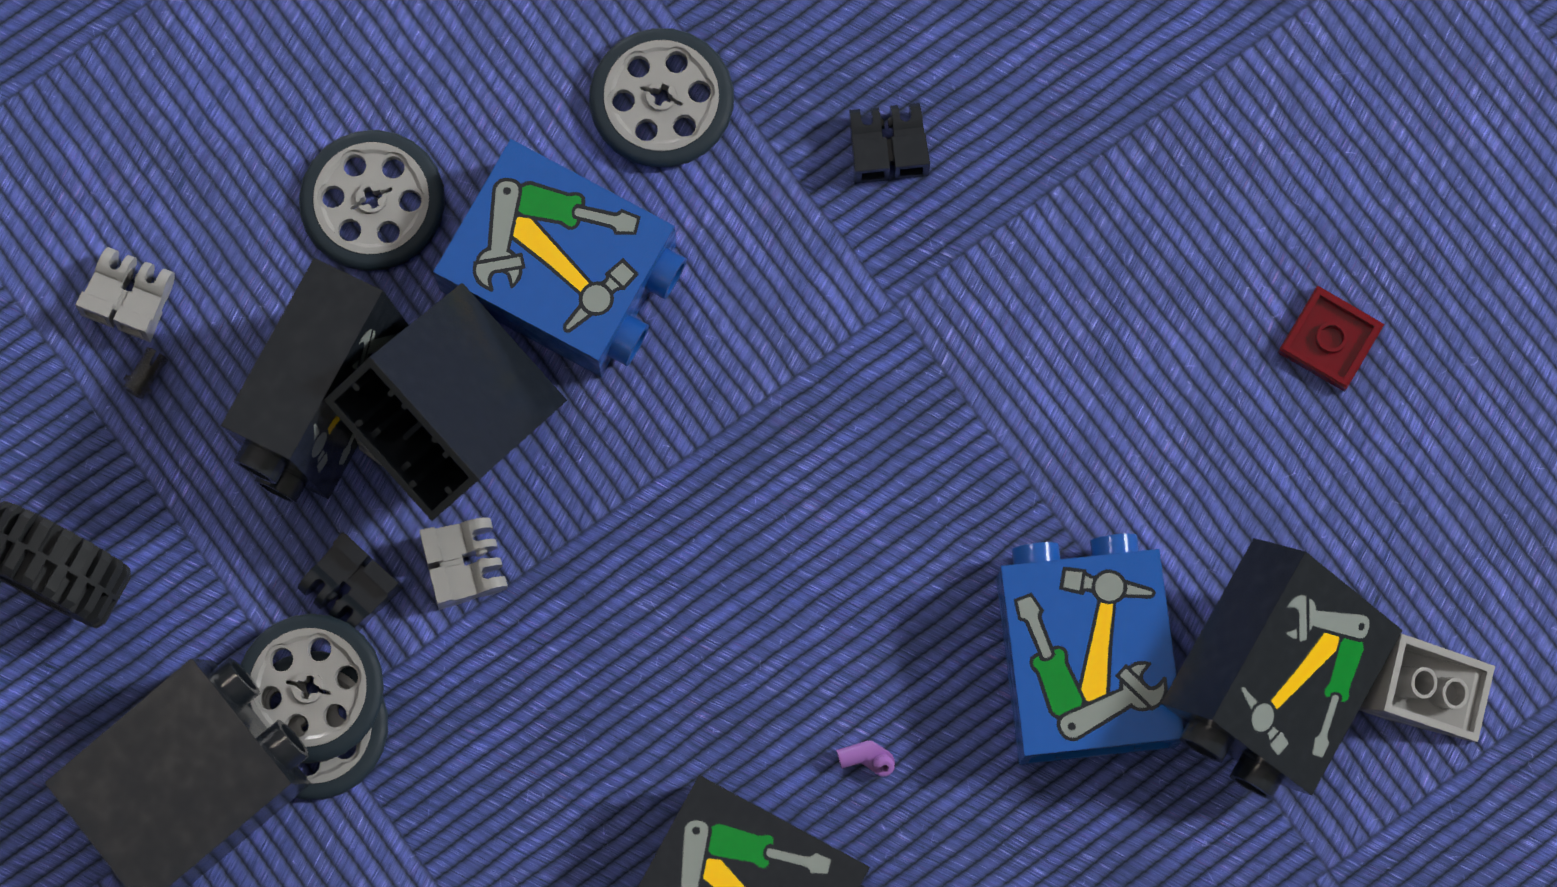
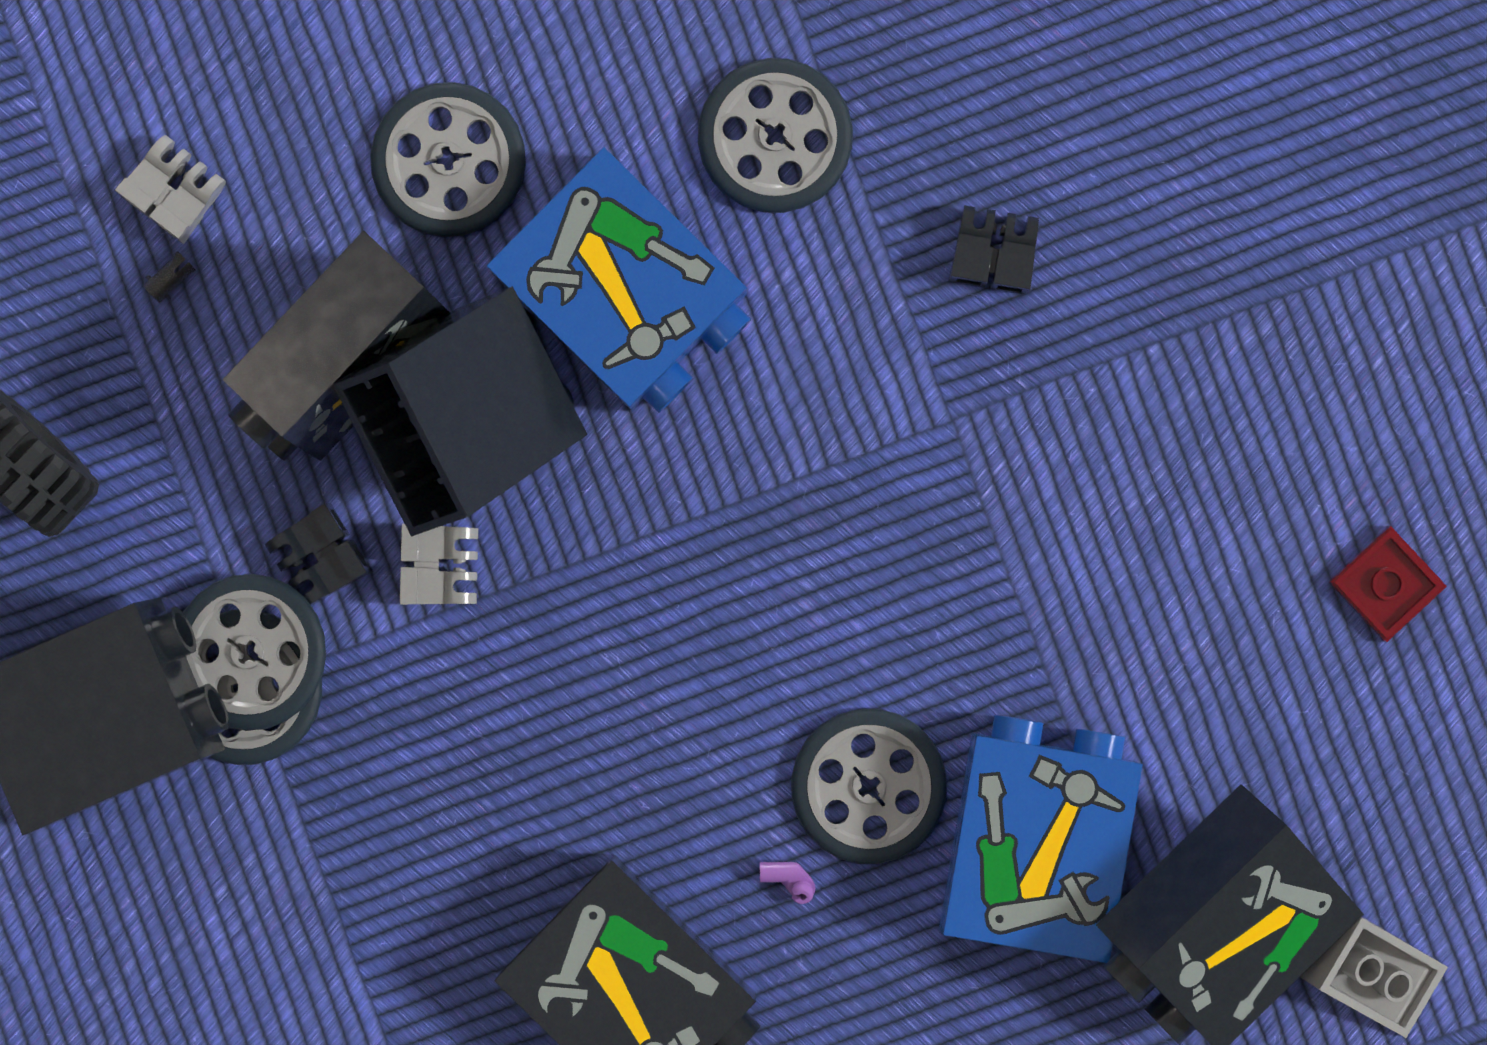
camera: 20 degrees right, 10 degrees up
(921, 599) = (903, 830): none -> wedge

